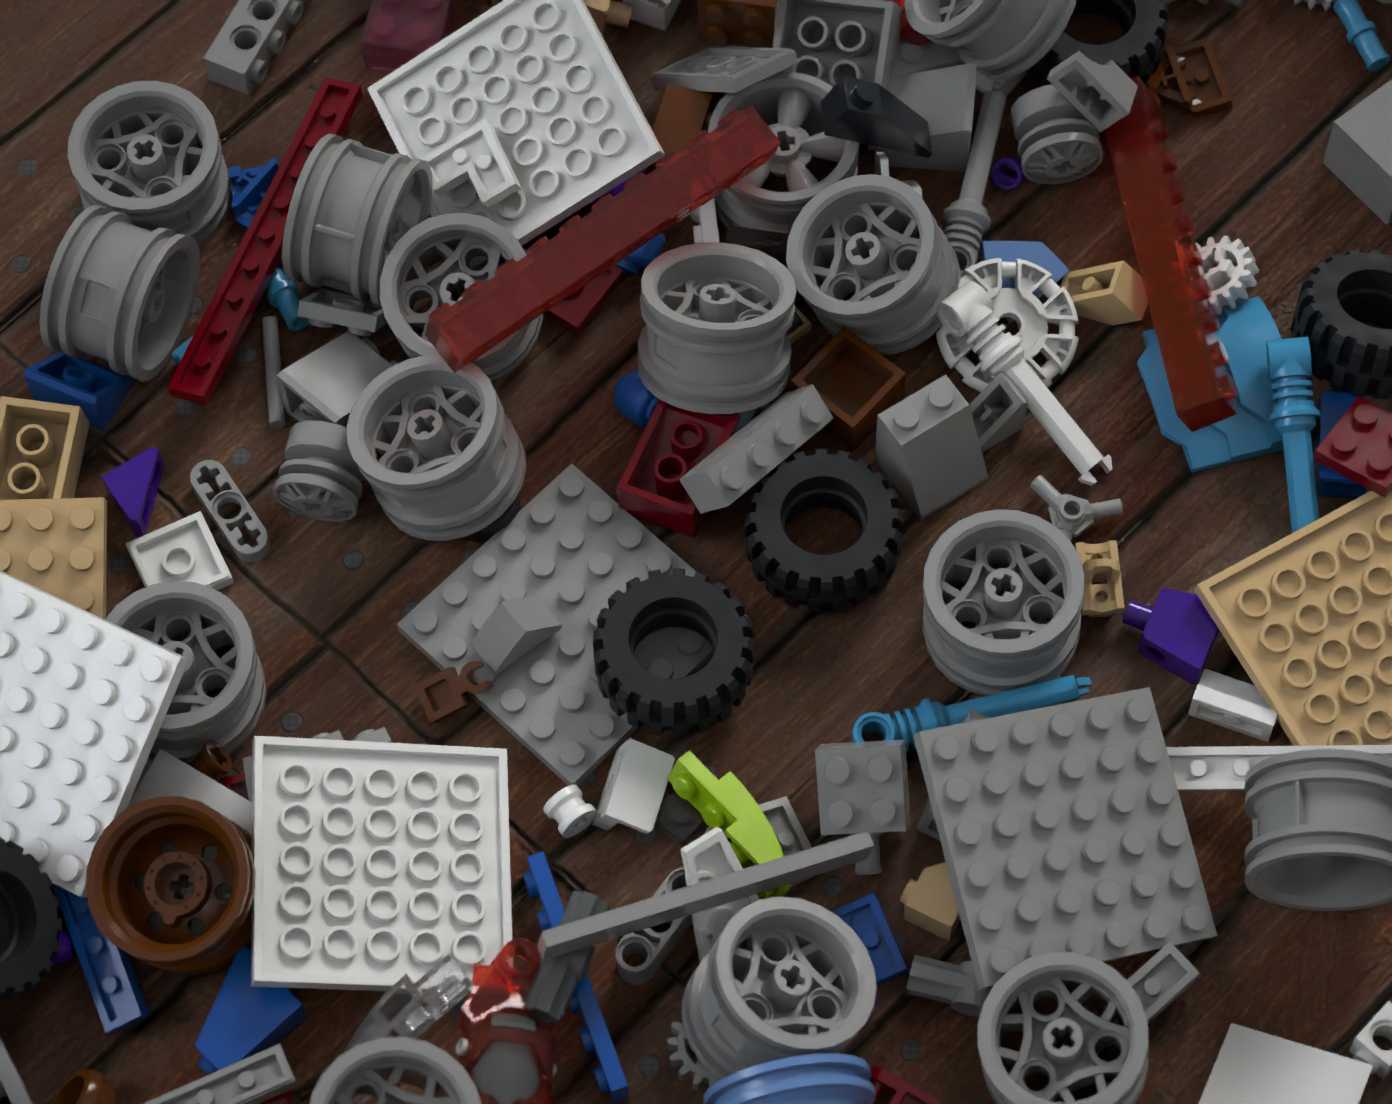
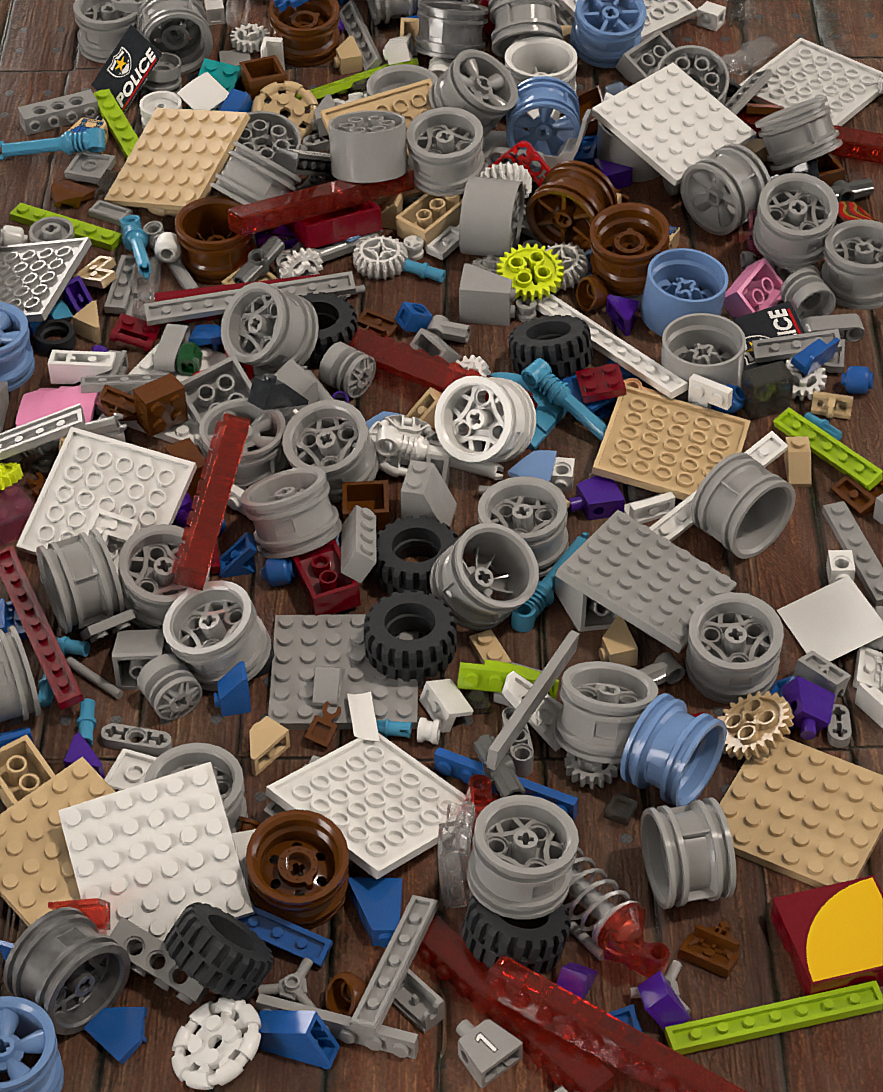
camera: 45 degrees left, 20 degrees down
(47, 1034) = (292, 986): none -> light grey piece
(195, 435) = (86, 720): none -> dark azure pin
(358, 654) = (267, 743): none -> tan slope
(395, 545) = (233, 692): none -> blue slope
(508, 718) = (363, 716): none -> white sticker
(528, 760) = (394, 728): none -> dark azure axle
(613, 335) = (239, 557): none -> blue slope
(725, 68) = (187, 423): light grey tile -> none
(779, 754) = (488, 647): none -> tan plate
(862, 791) = (544, 628): light grey brick -> none
(899, 683) = (469, 589): none -> light grey wheel
(1095, 90) = (352, 335): light grey arch -> none
(1121, 385) = (465, 405): none -> white wheel
(1131, 517) = (536, 464): none -> medium blue slope
(1175, 536) = (564, 474): none -> white brick
(1217, 193) = (434, 346): none -> light grey brick
(1250, 110) = (413, 317): none -> blue brick
(1276, 162) = (449, 330): none -> light grey piece

